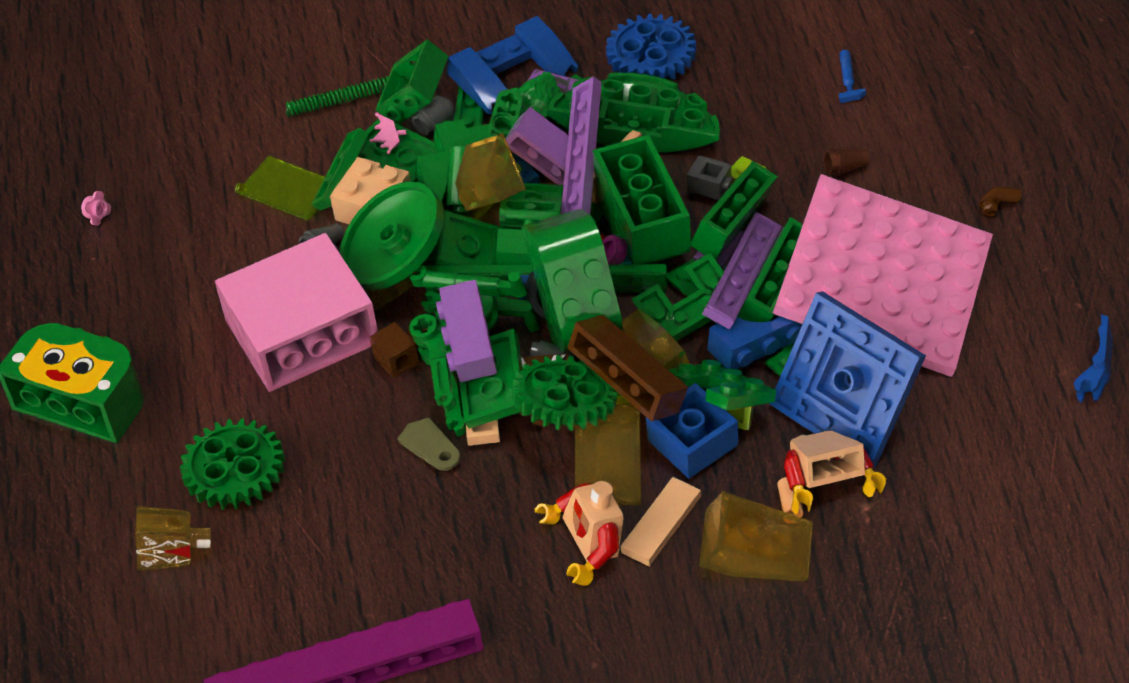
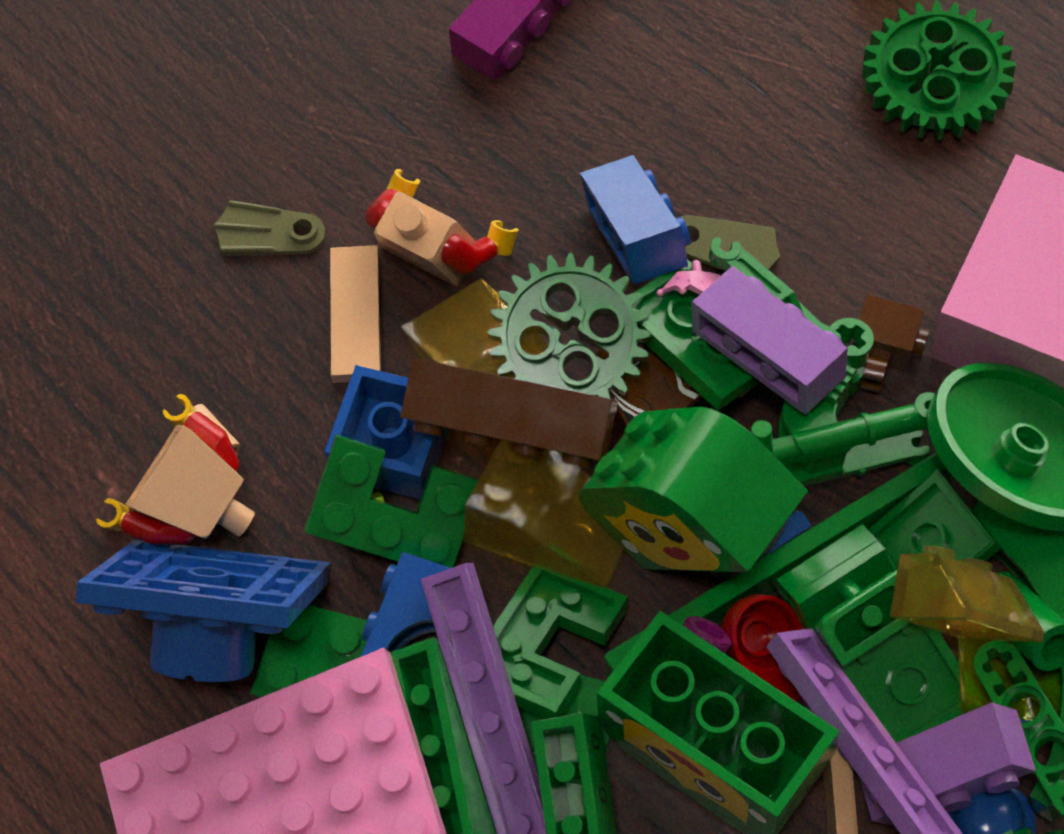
camera: 145 degrees right, 15 degrees up
(471, 457) = (636, 219): none -> brick
(472, 397) = (693, 280): none -> bright pink piece
(677, 602) = (266, 231): none -> olive piece
(755, 540) = (213, 339): clear yellow slope -> none

